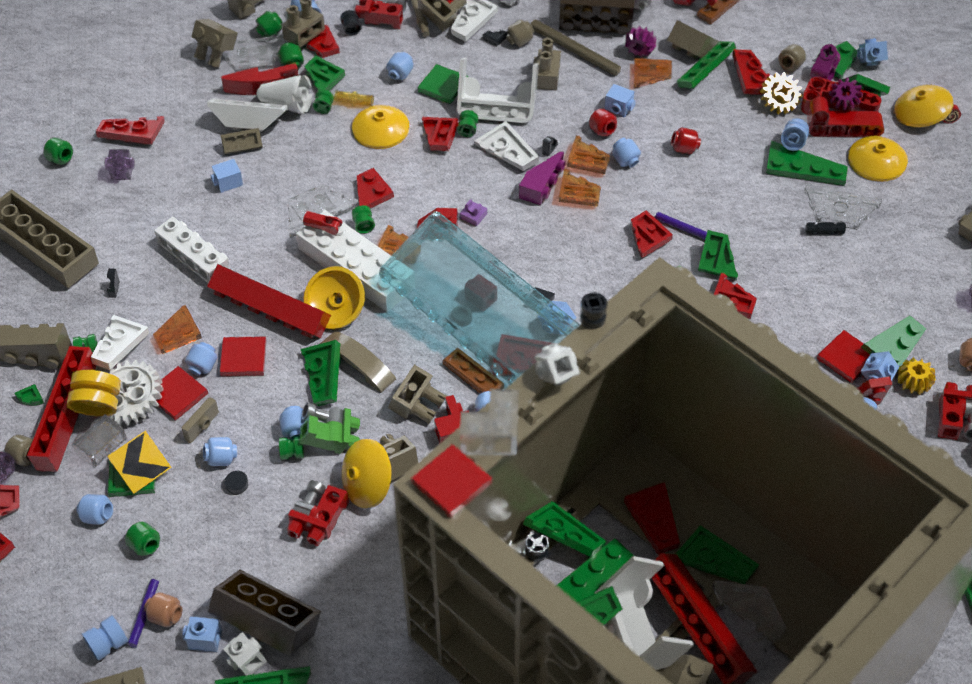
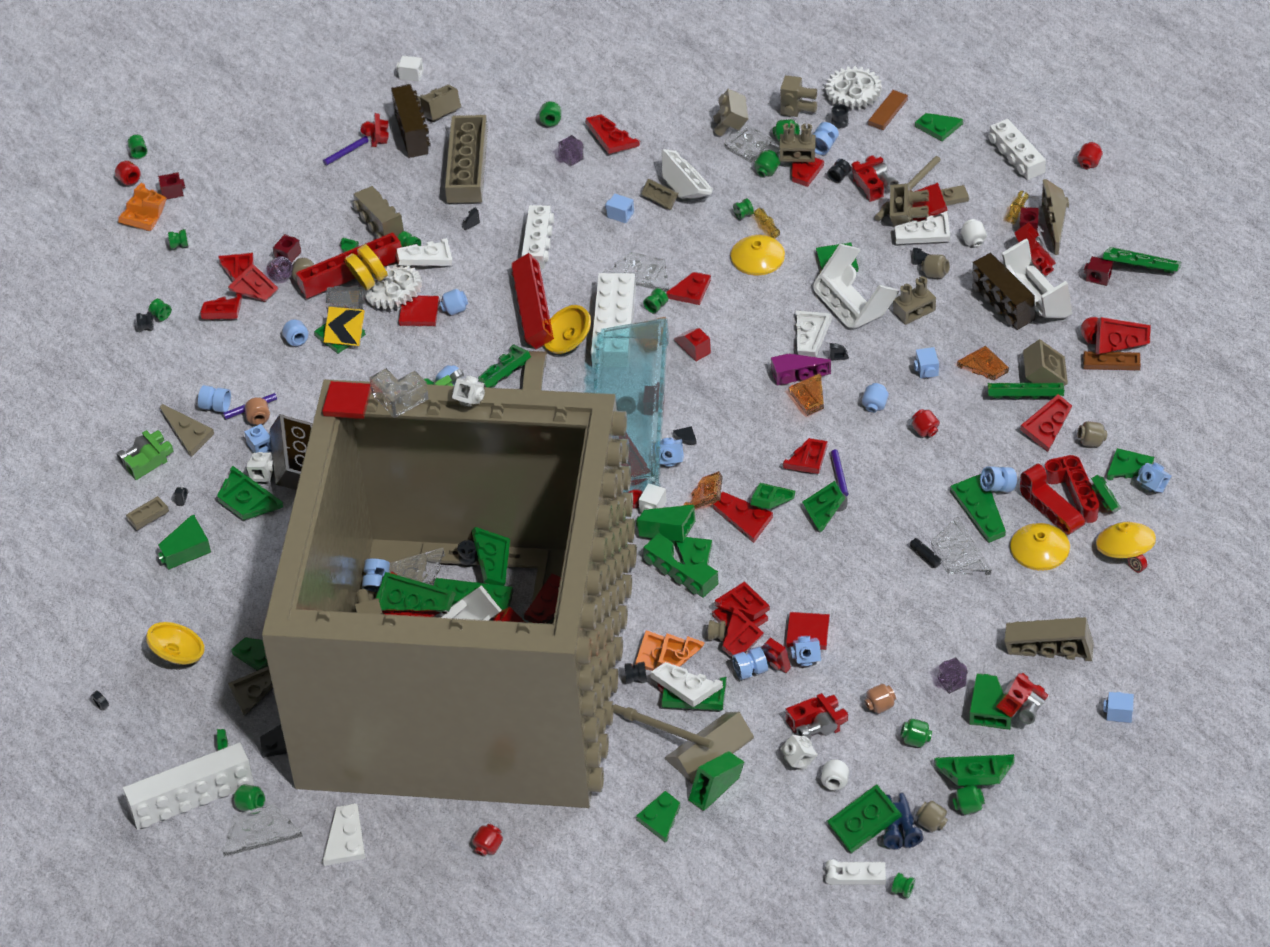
camera: 55 degrees right, 5 degrees down
(142, 538) = (296, 368): green head -> none
(177, 331) = (467, 277): clear orange wing -> none
(200, 420) = (407, 334): dark tan plate -> none
(219, 451) = (392, 359): light blue head -> none
(243, 356) = (480, 321): red tile -> none
(249, 80) = (727, 167): red slope -> none
(289, 92) = (727, 186): white cone -> none
(323, 73) = (770, 192): green wing -> none
(326, 223) = (615, 276): red bar -> none
(399, 66) = (823, 224): light blue head -> none
(440, 132) = (783, 288): red wing -> none
(467, 123) = (805, 297): green wheel -> none
(473, 213) = (727, 353): medium lavender tile -> none
(576, 47) = (960, 306): dark tan axle -> none
(587, 157) = (848, 380): clear orange wing -> none
(593, 310) = (531, 385): black wheel -> none
(603, 122) = (892, 367): red head -> none
(640, 41) = (1002, 336): magenta gear -> none
(743, 300) = (794, 536): red wing -> none
(783, 86) = (1031, 443): gear -> none
(826, 62) = (1104, 456): magenta piece -> none
(840, 100) = (1069, 481): magenta gear -> none
(897, 339) = (847, 649): wing -> none
(916, 376) = (825, 676): yellow gear -> none

